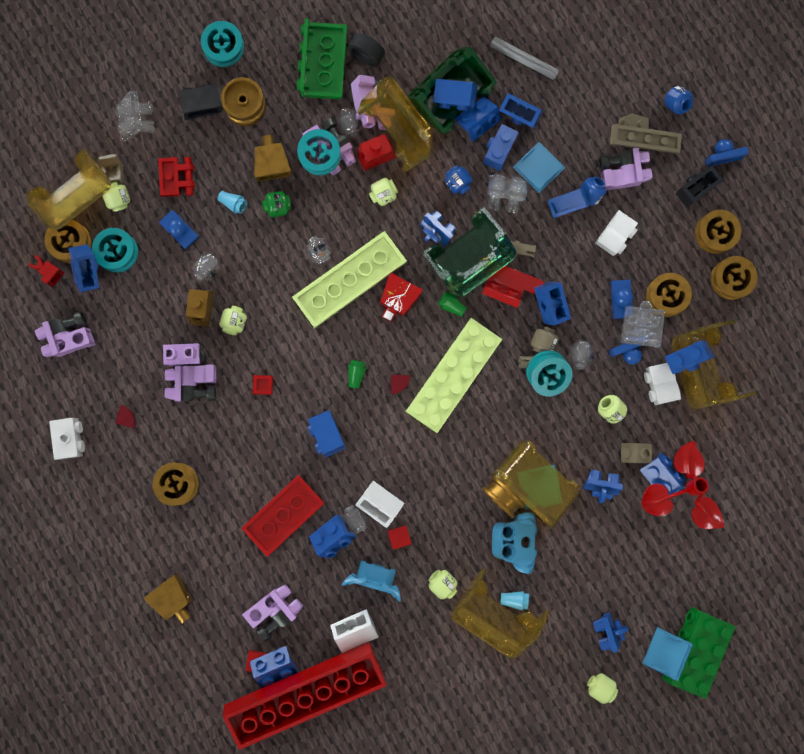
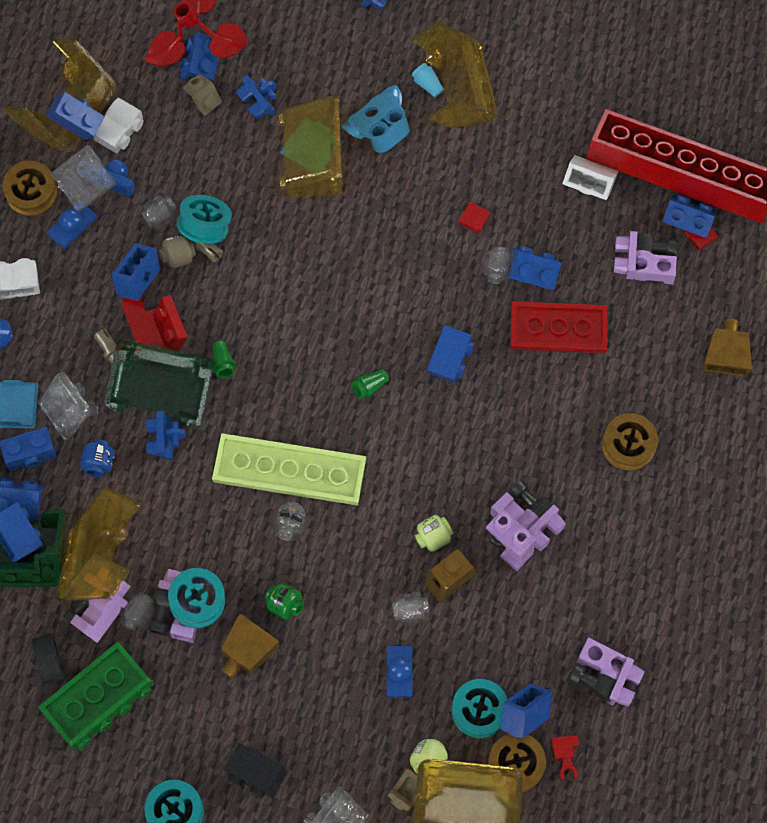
camera: 135 degrees left, 15 degrees down
(67, 438) = (693, 576): white brick -> none
(125, 417) = (620, 546): dark red tile -> none
(170, 179) = (357, 729): red plate -> none
(234, 202) = (322, 646): medium azure cone -> none
(243, 101) = (217, 741): pearl gold wheel -> none
(262, 385) = (464, 455): red tile -> none
(374, 577) = (530, 201): dark azure piece -> none
(375, 152) = (143, 556): red torso -> none
(380, 498) = (463, 254): white brick -> none
(383, 191) = (175, 515): yellowish green head -> none
(398, 297) = (262, 409): red torso -> none
(399, 383) = (340, 340): dark red tile -> none
(443, 584) = (476, 145): yellowish green head -> none
(453, 375) = (285, 301): yellowish green plate -> none
(503, 497) = (352, 160): pearl gold wheel -> none
(568, 202) = (25, 342): blue tile -> none
(612, 409) = (182, 144): yellowish green head -> none

